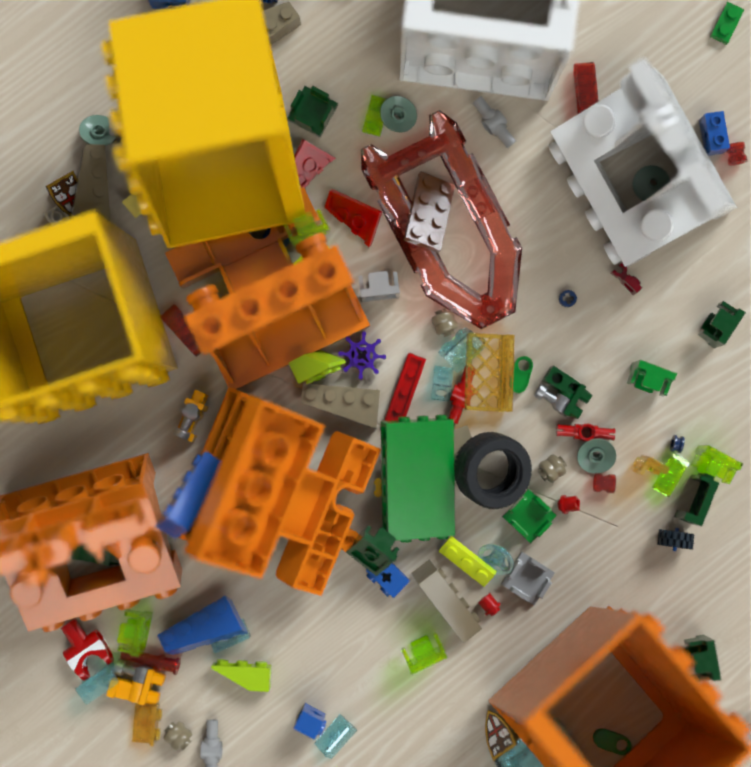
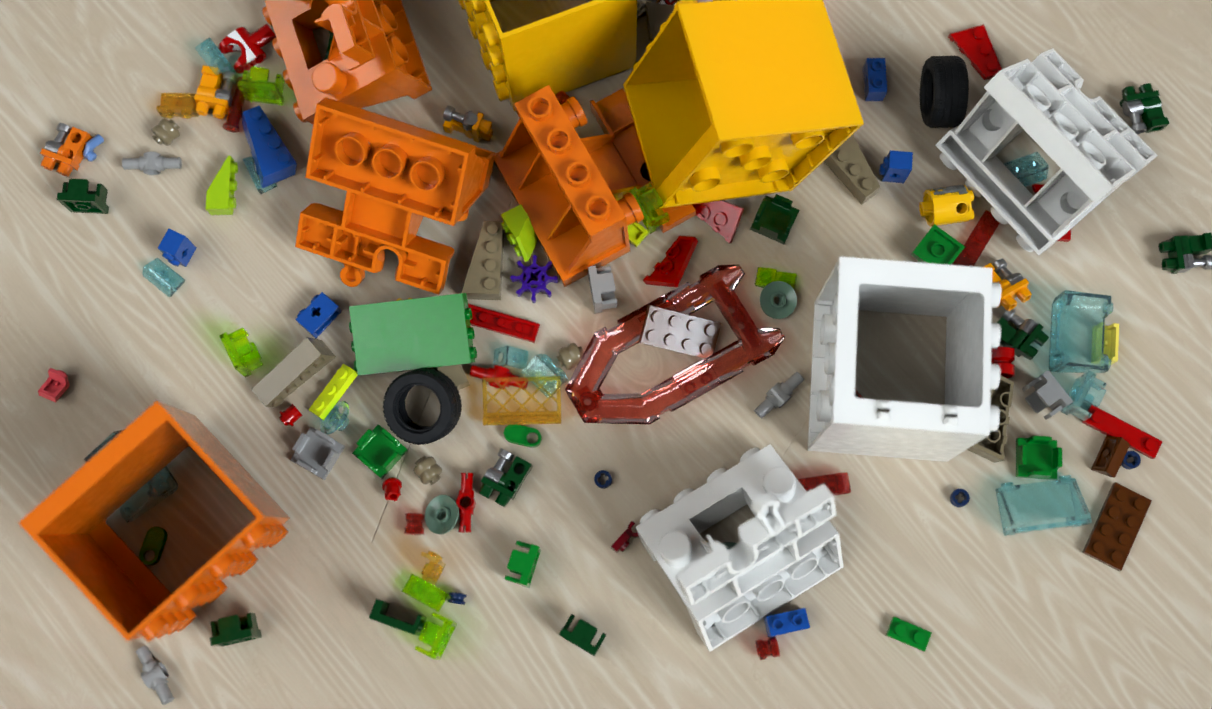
camera: 85 degrees right, 10 degrees down
(190, 496) = (365, 99): blue wedge -> none
(374, 551) = (339, 293): dark green panel -> none
(675, 539) = (357, 598): black wheel -> none

